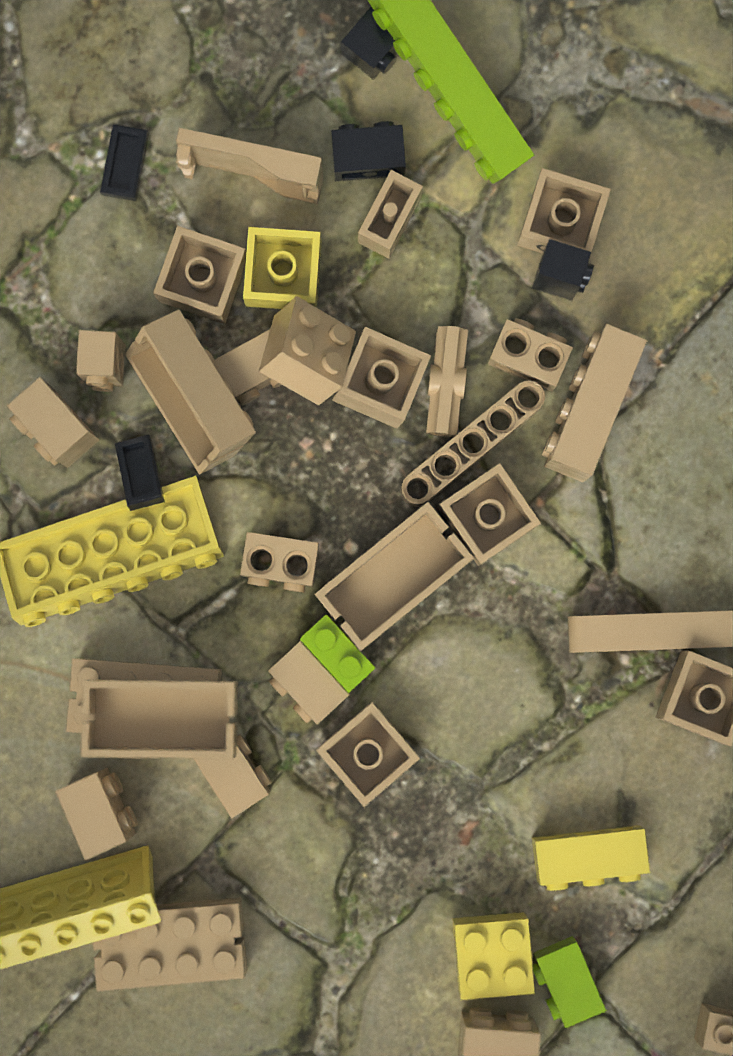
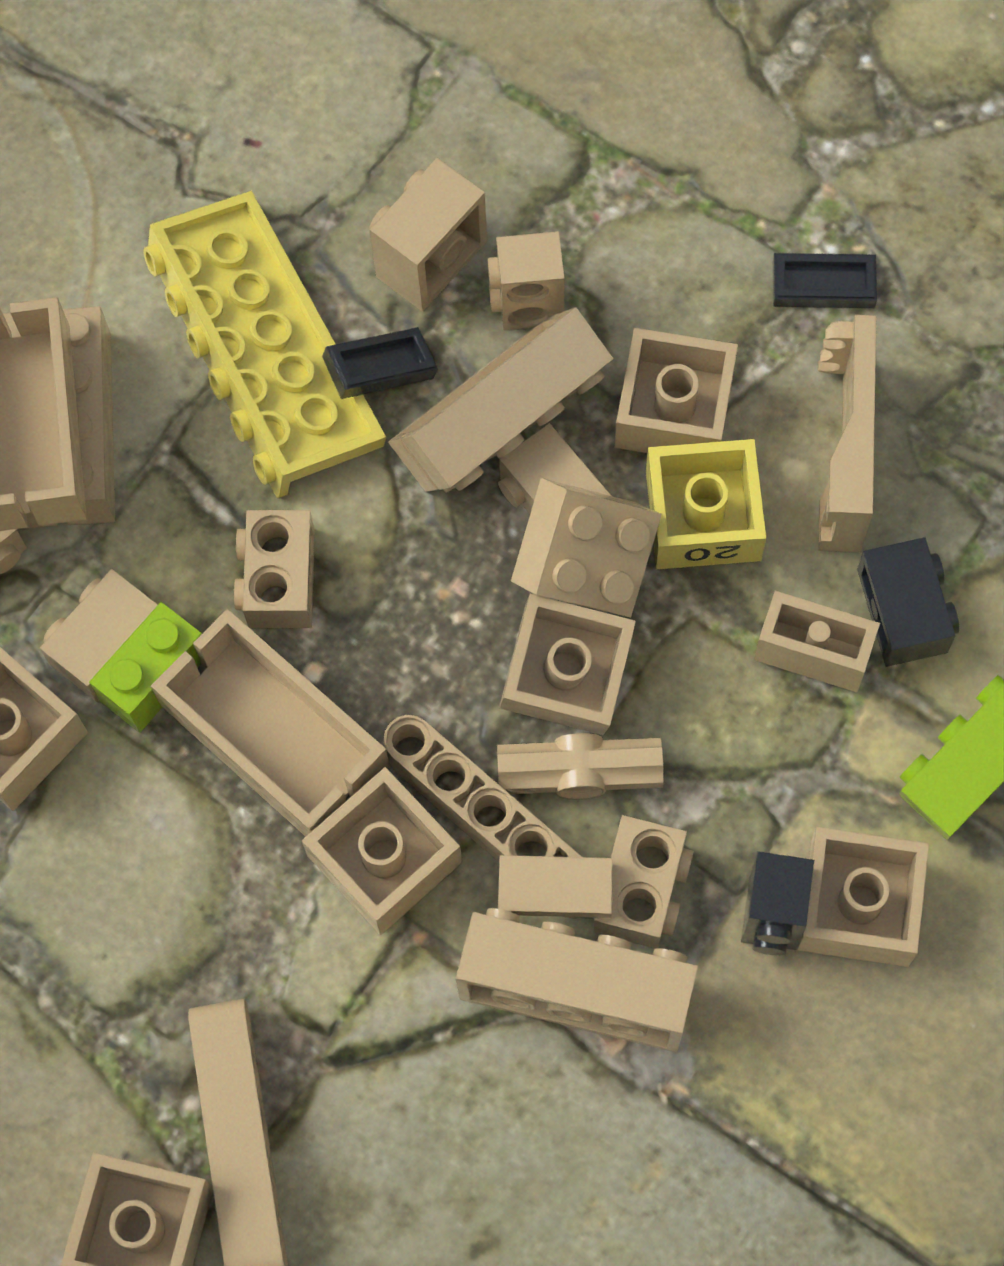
camera: 85 degrees right, 15 degrees down
(533, 407) = (555, 886): none -> tan tile

